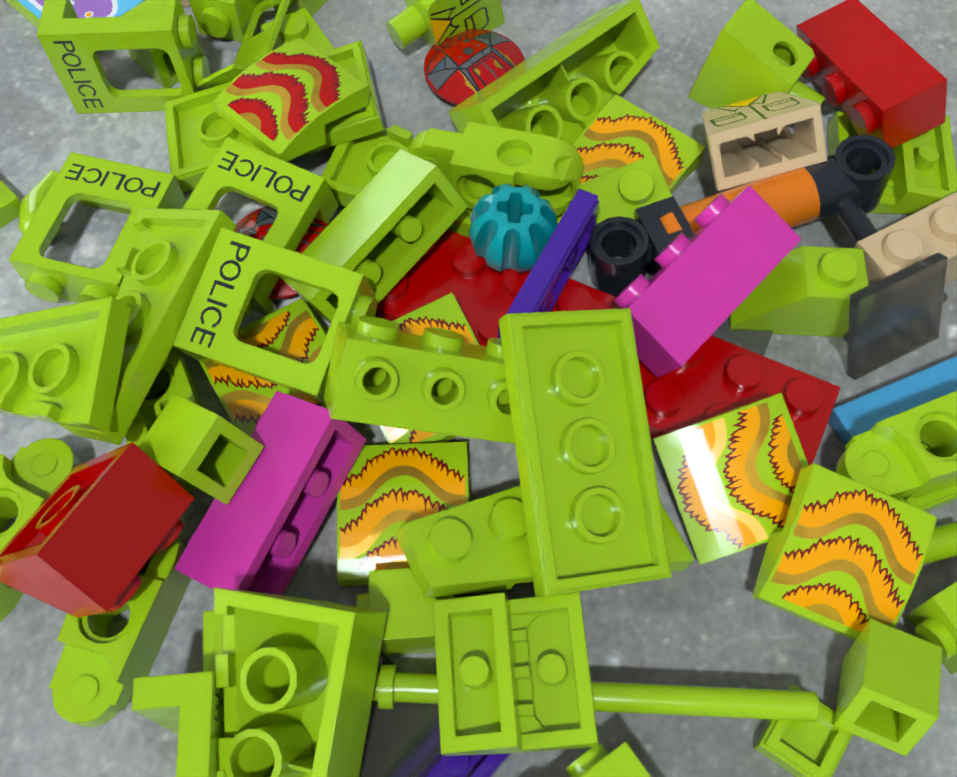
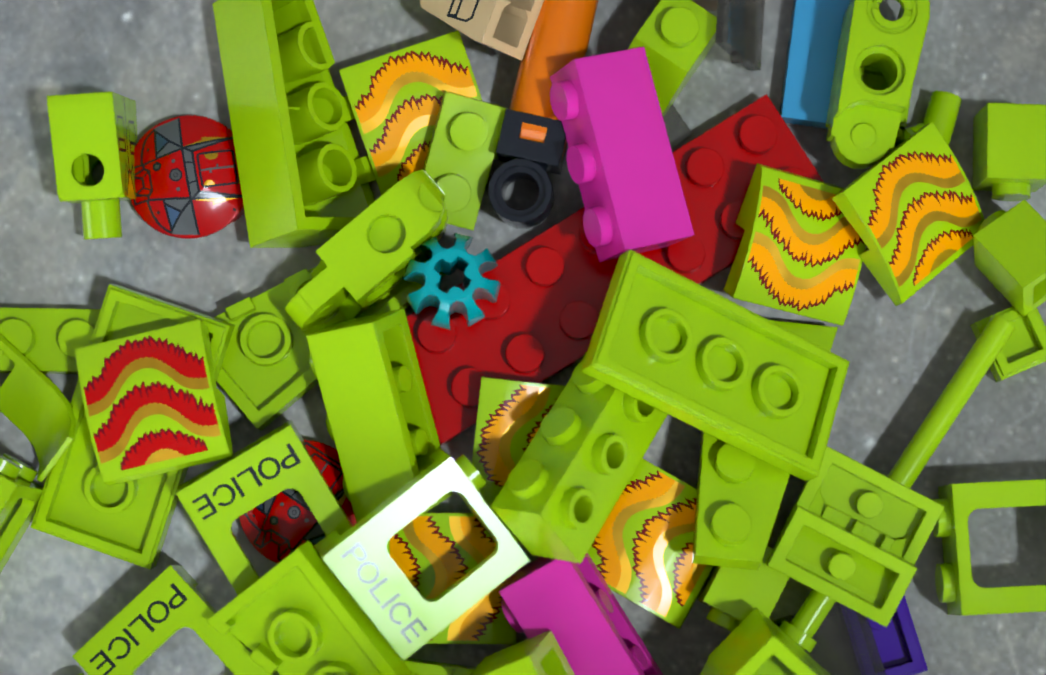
camera: 60 degrees left, 20 degrees up
(558, 257) = (522, 279): dark purple tile -> none

